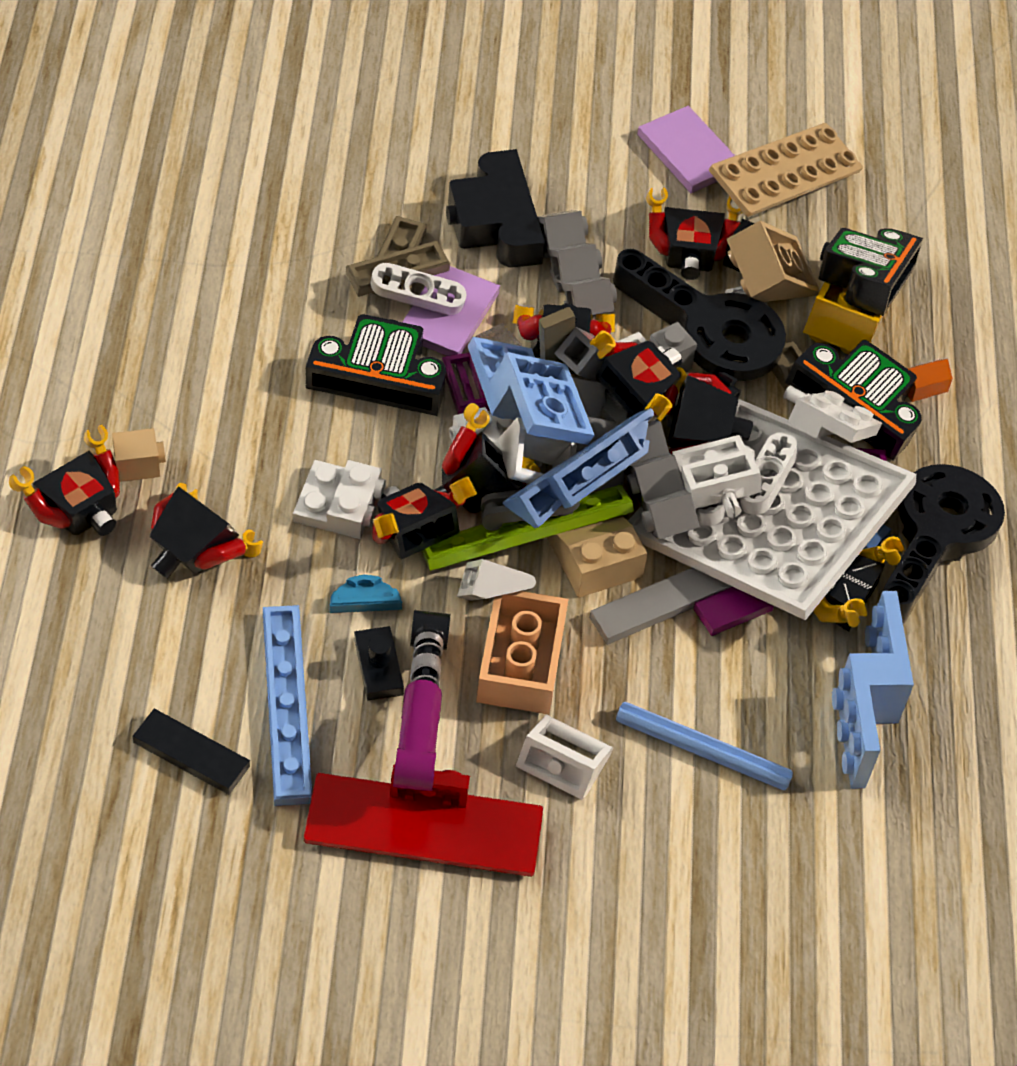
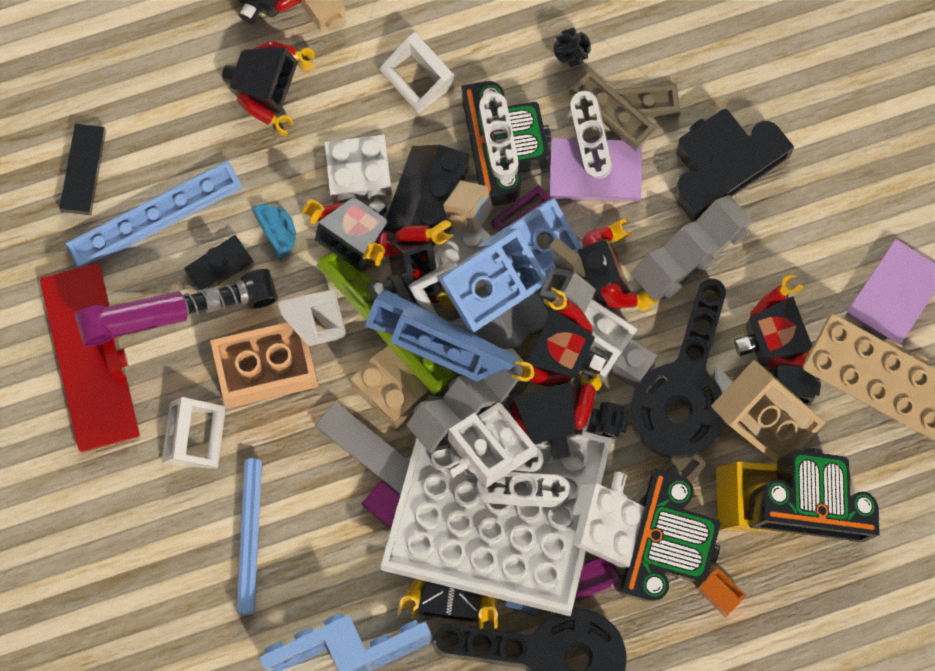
camera: 75 degrees right, 20 degrees up
(261, 391) = (429, 62): none -> white tile
(312, 272) = (572, 47): none -> black gear
(389, 364) = (502, 114): none -> white beam
(399, 440) = (425, 186): none -> black slope
(443, 405) = (468, 206): none -> tan brick

